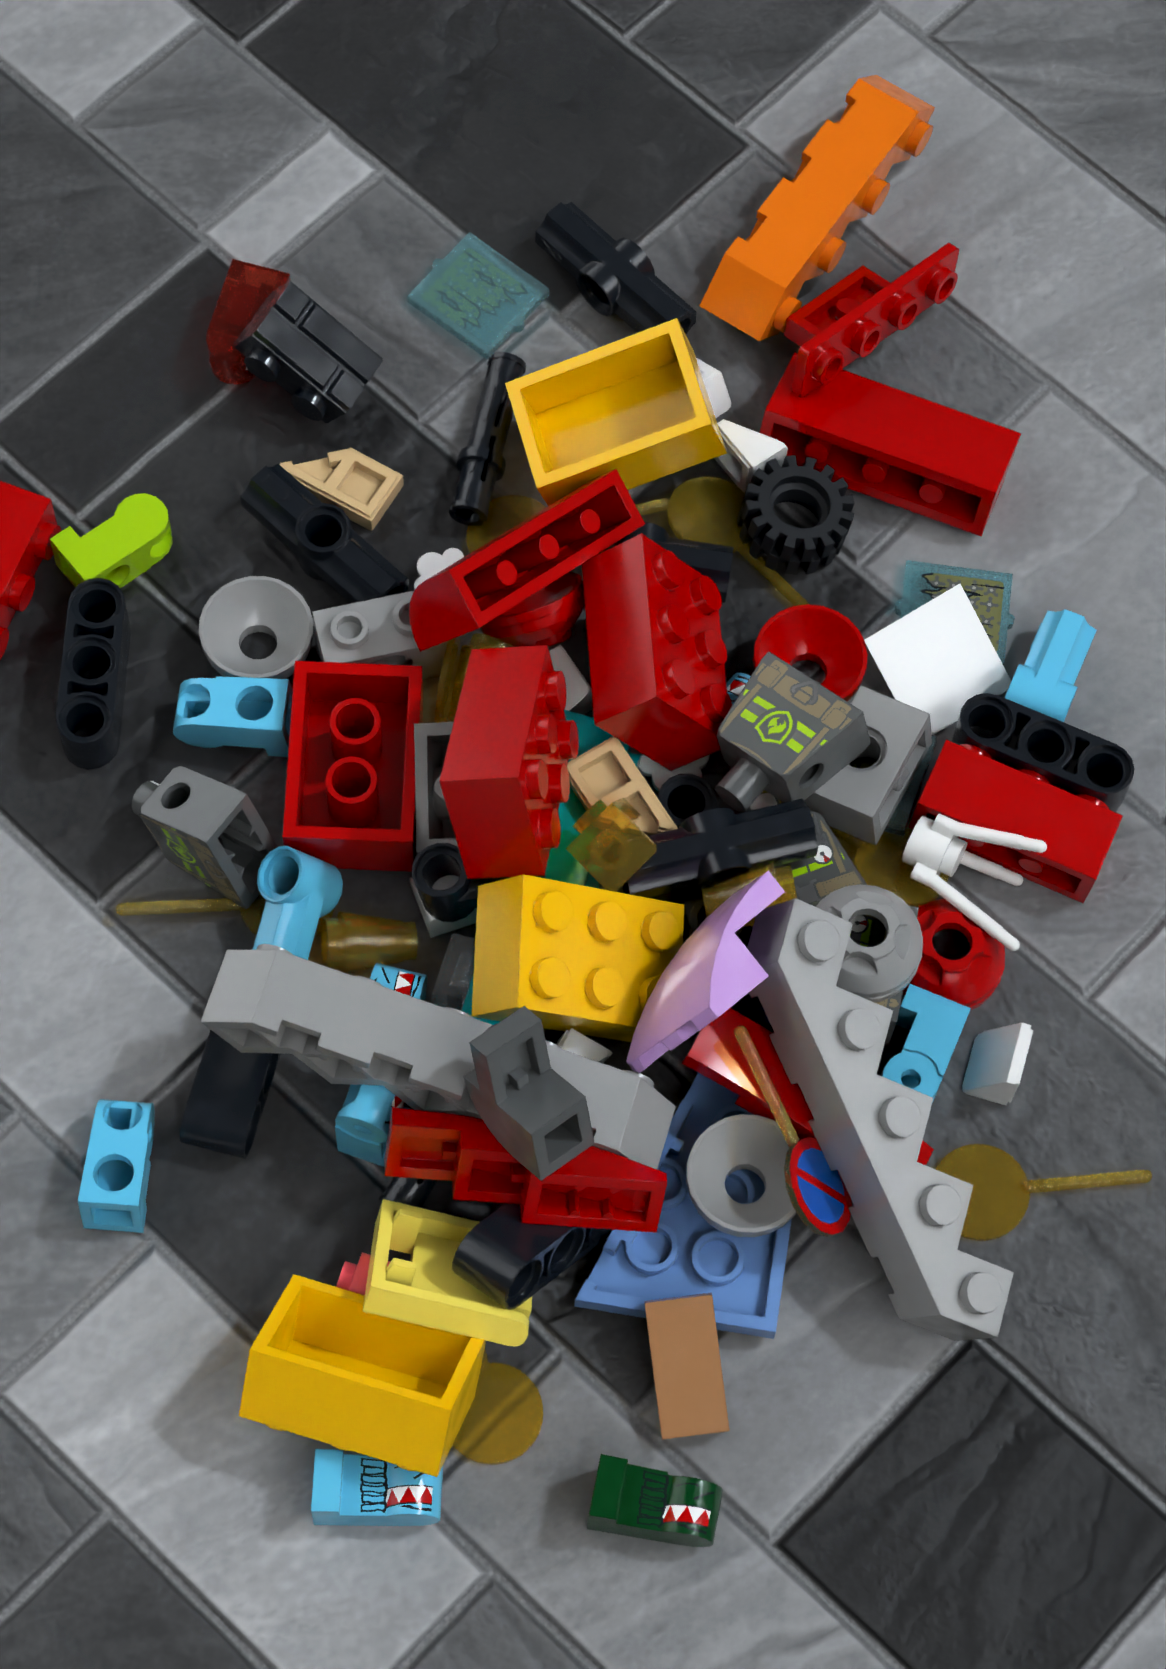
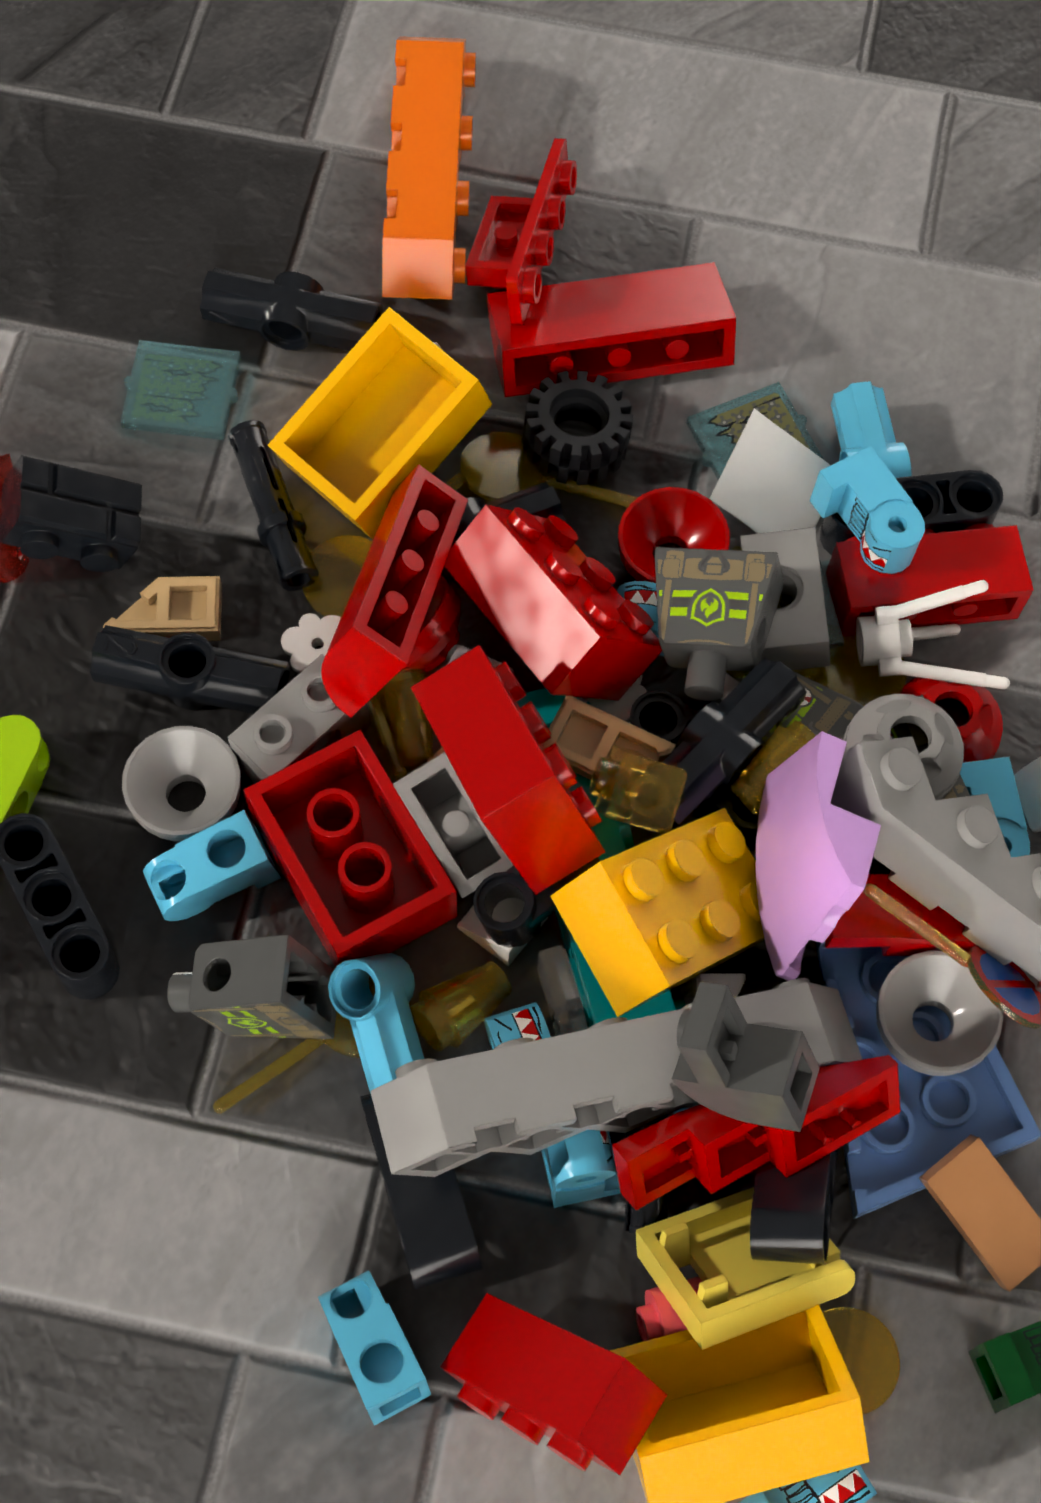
camera: 30 degrees left, 0 degrees up
(227, 1266) = (552, 1386): none -> red brick
(747, 452) = (509, 398): white slope -> none
(994, 726) = (872, 508): none -> medium azure leg

